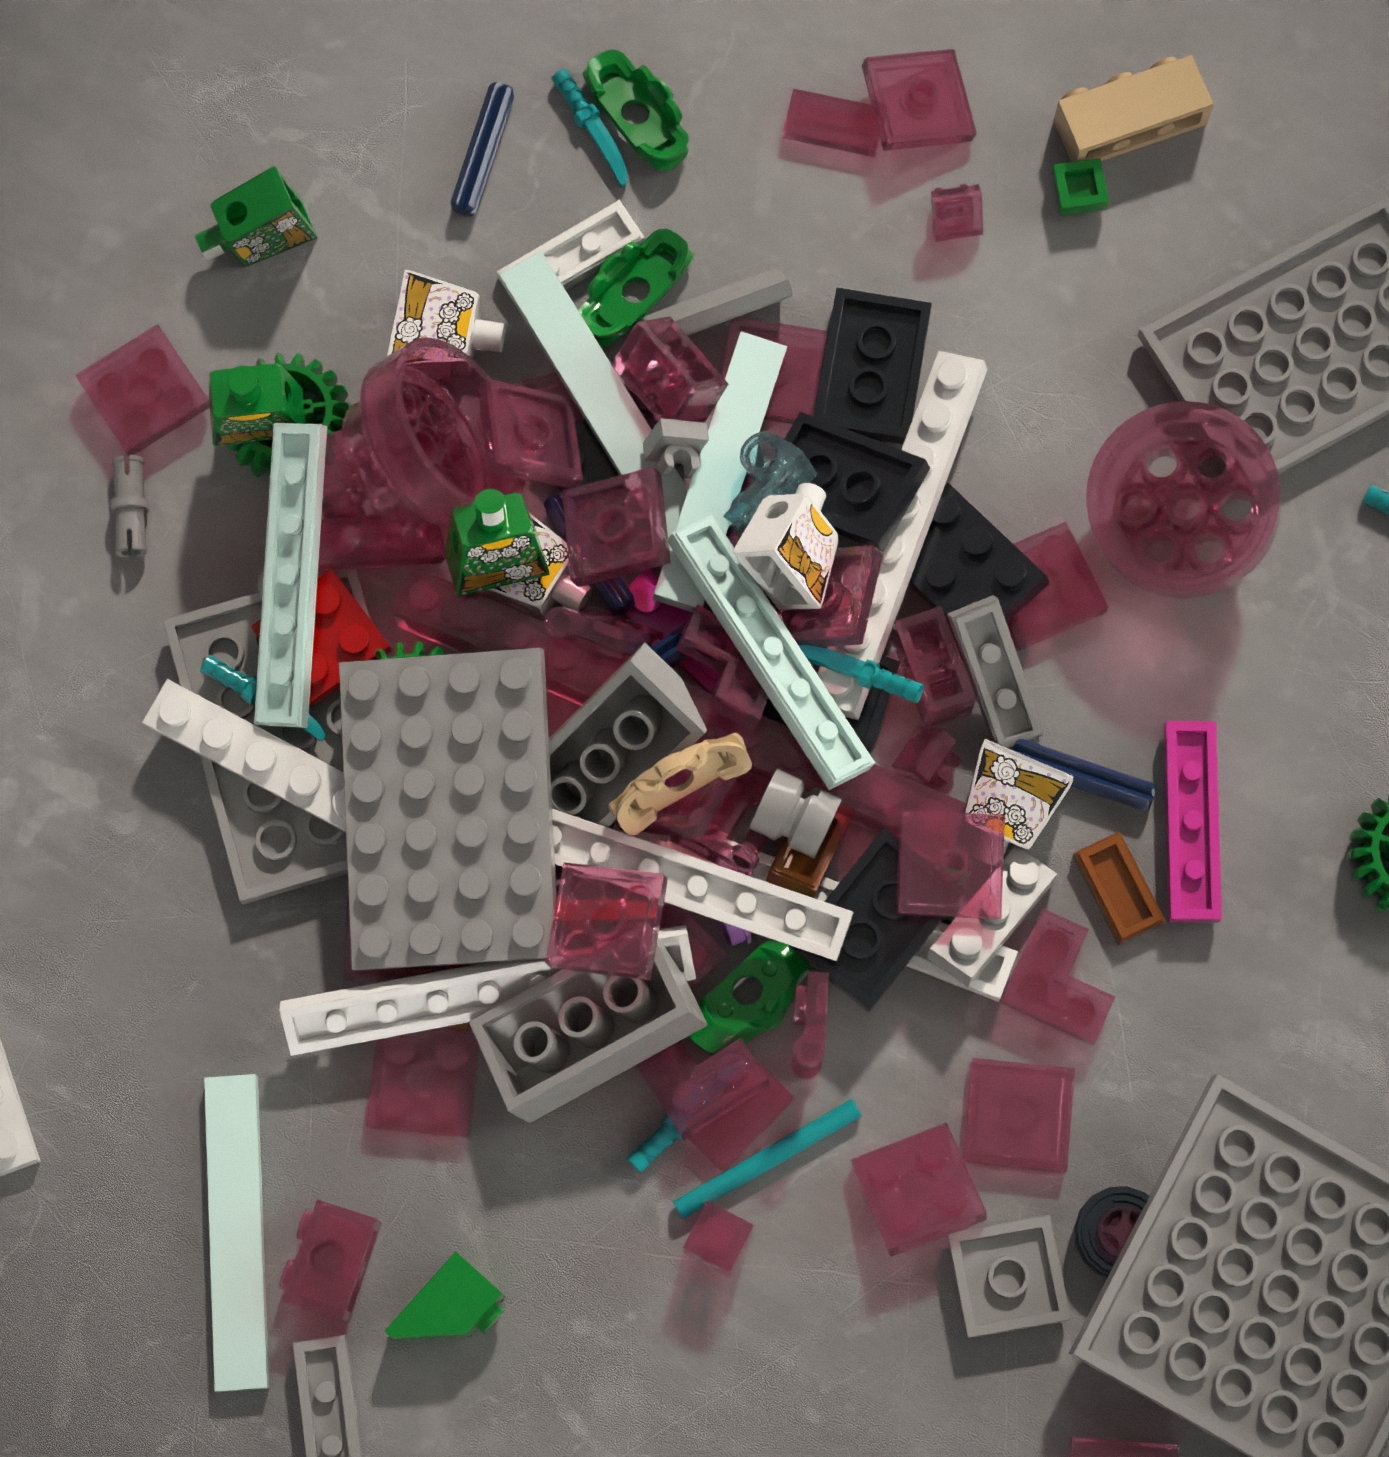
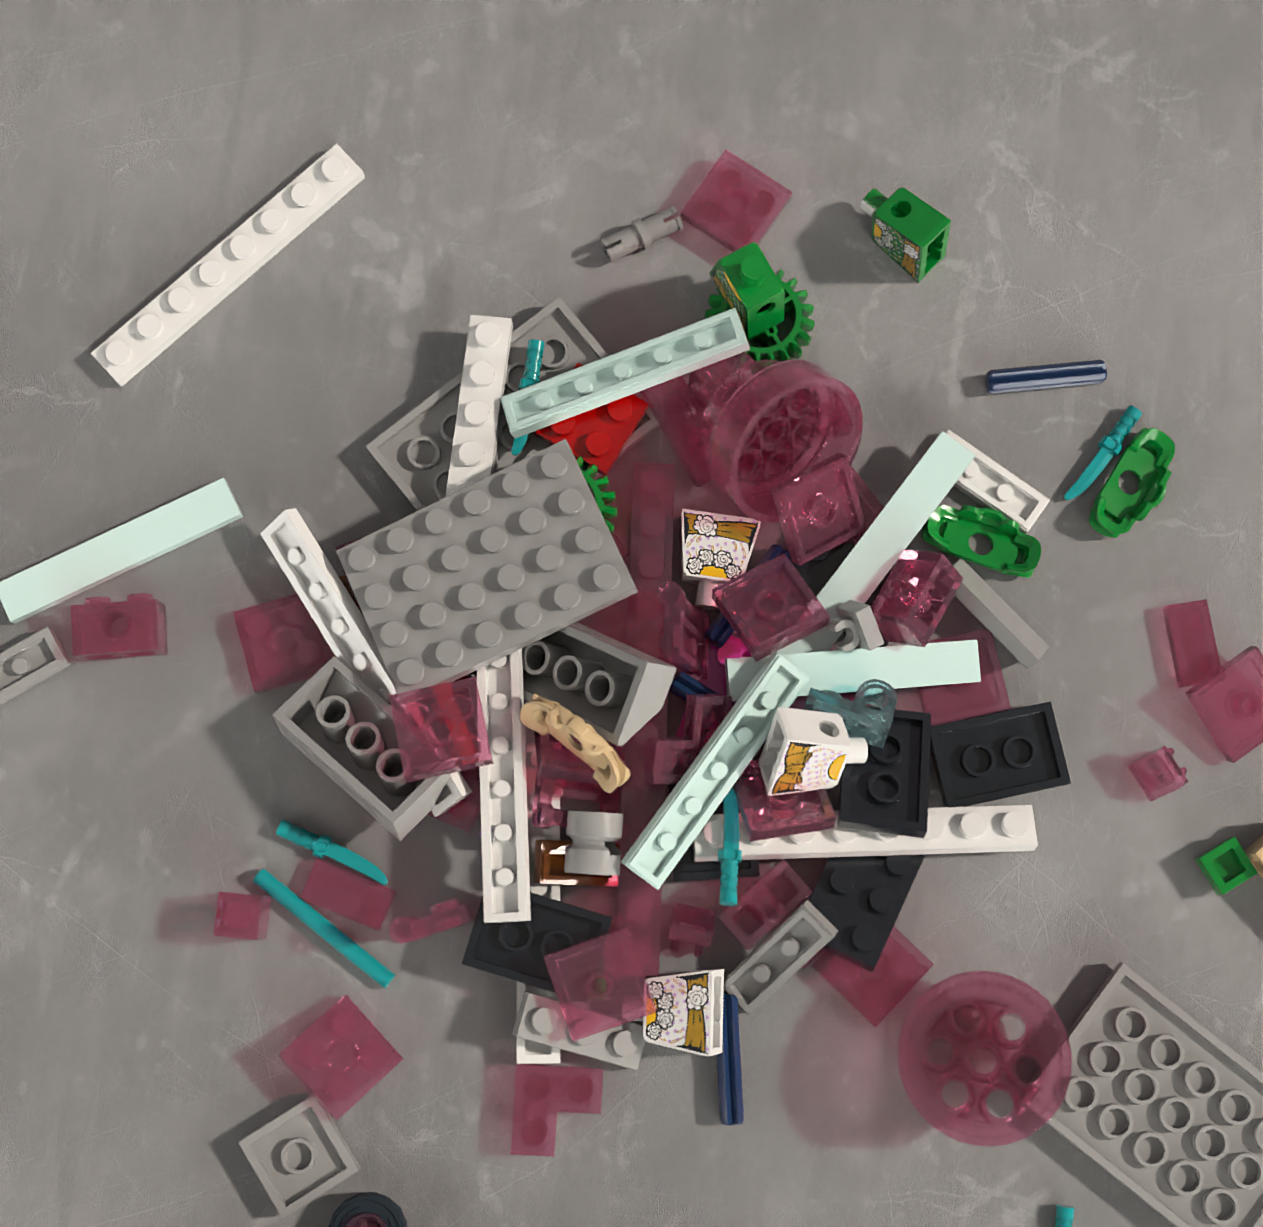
camera: 60 degrees right, 5 degrees up
(445, 313) = (887, 403): torso -> none
(449, 1305) = (119, 732): green slope -> none
(493, 543) = (712, 518): green torso -> none
(702, 1092) = (350, 855): clear pink plate -> none
(729, 1020) = (417, 855): green piece -> none
(1019, 1115) = (432, 1114): clear pink tile -> none
(1119, 888) = (647, 1124): dark orange tile -> none
(1192, 822) = (724, 1164): dark pink plate -> none

